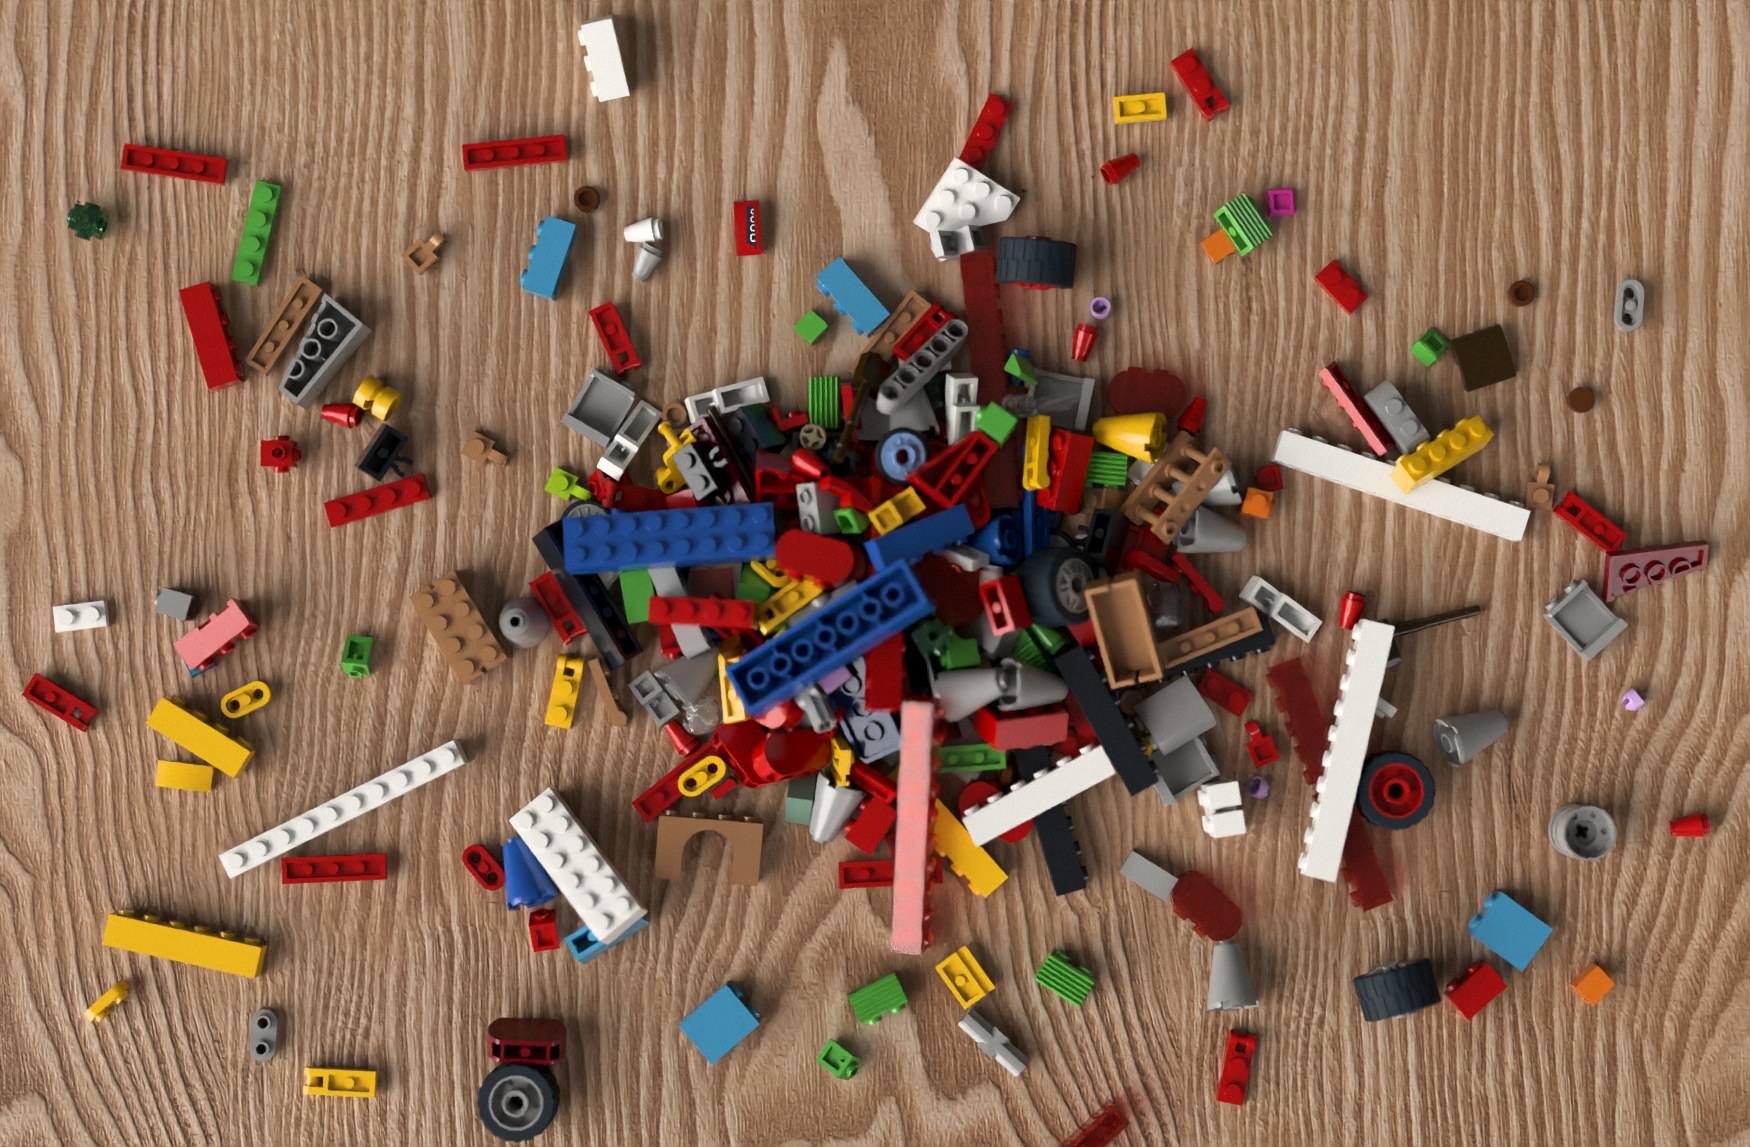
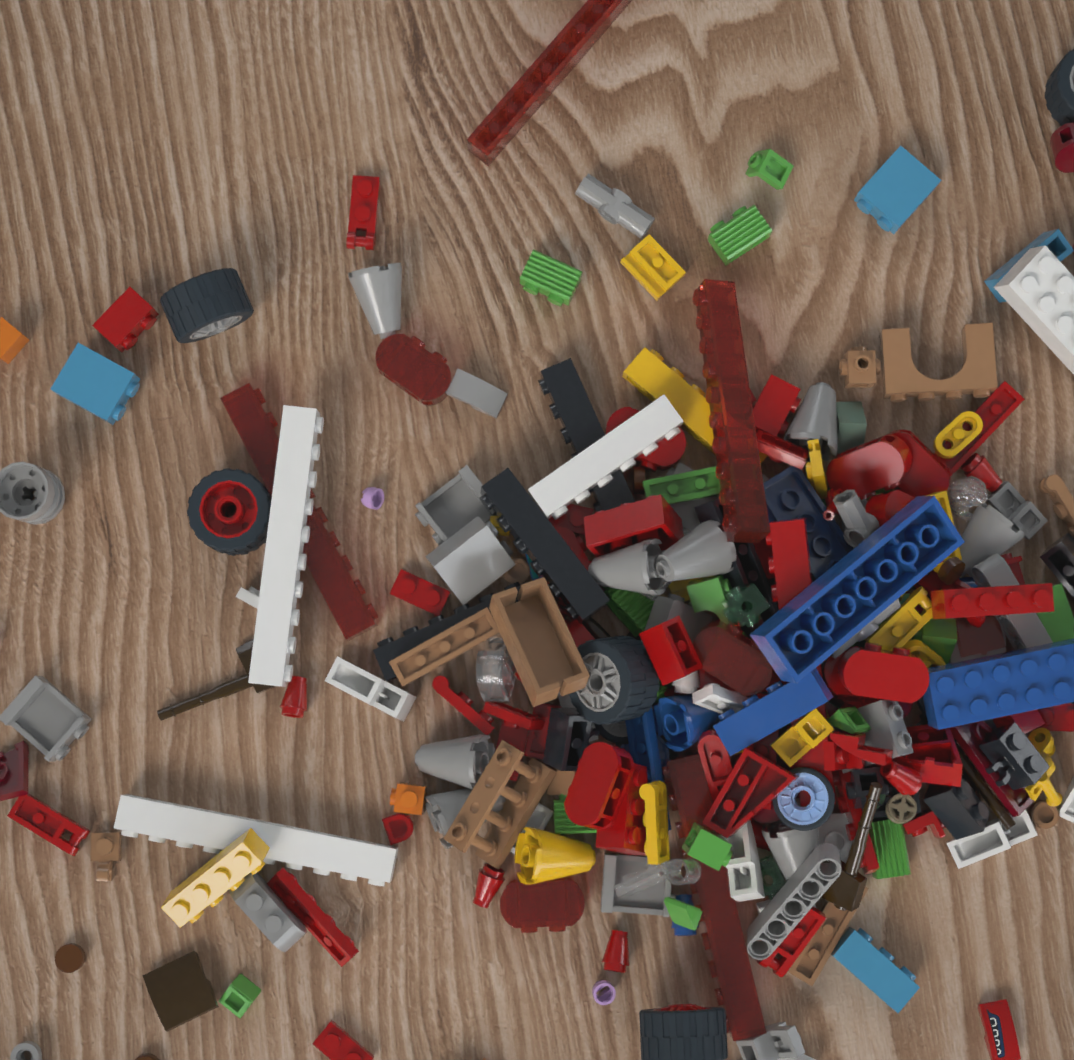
camera: 170 degrees right, 5 degrees down
(724, 787) = (934, 423): red tile -> none
(787, 843) = (859, 368): none -> medium nougat brick
(811, 327) = (912, 929): bright green slope -> none
(835, 679) = (839, 549): lavender slope -> none
(876, 873) = (759, 360): red plate -> none
(1048, 637) = (613, 625): bright green cone -> none
(1084, 491) = (599, 785): none -> red brick
(1220, 804) = (409, 474): white piece -> none
(1260, 748) = (375, 539): red plate -> none
(1468, 734) = (157, 581): light grey cone -> none

